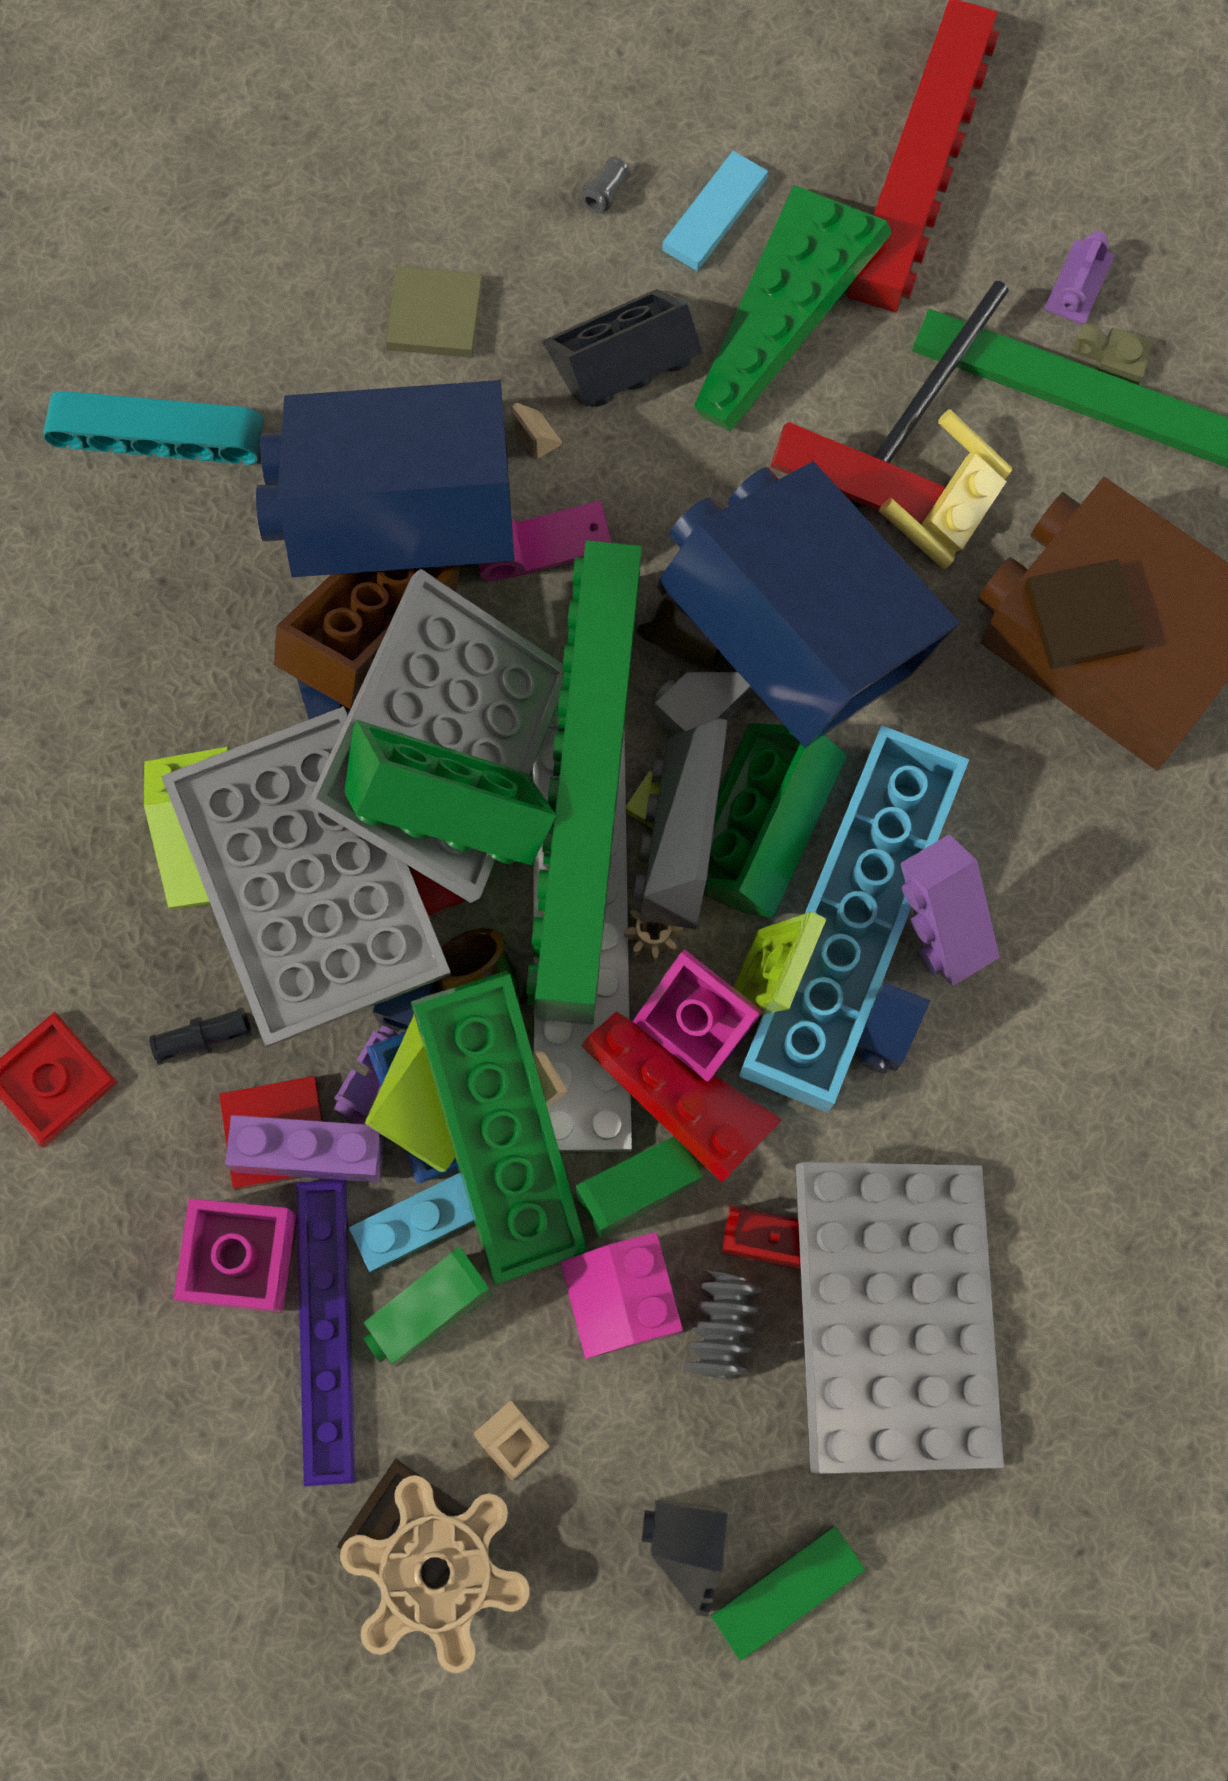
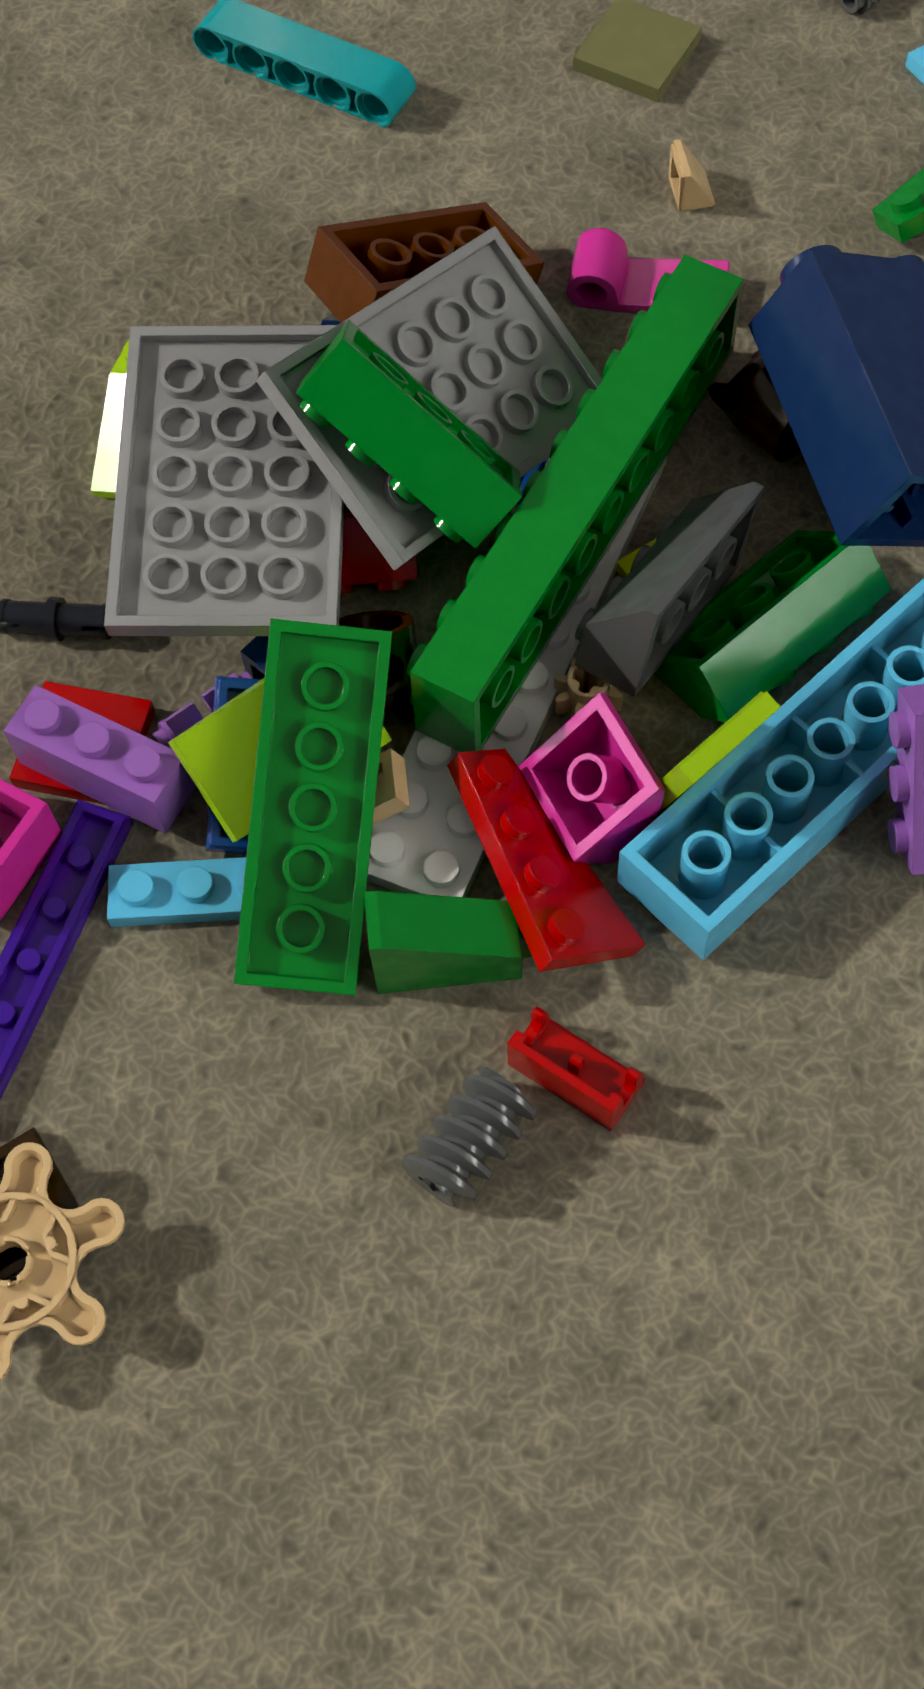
camera: 30 degrees right, 10 degrees down
(388, 479) = (511, 151): dark blue brick -> none
(426, 1308) = (149, 974): green slope -> none
(511, 1440) = (172, 1167): tan slope -> none
(621, 1295) = (373, 1057): dark pink slope -> none
(624, 347) = (823, 134): black slope -> none
(688, 1548) = (309, 1360): black wedge -> none
(700, 699) = (785, 479): light grey slope -> none
(787, 1592) = (406, 1481): green tile -> none
(890, 1028) = (815, 883): dark blue slope -> none
(897, 1318) = (681, 1215): light grey plate -> none

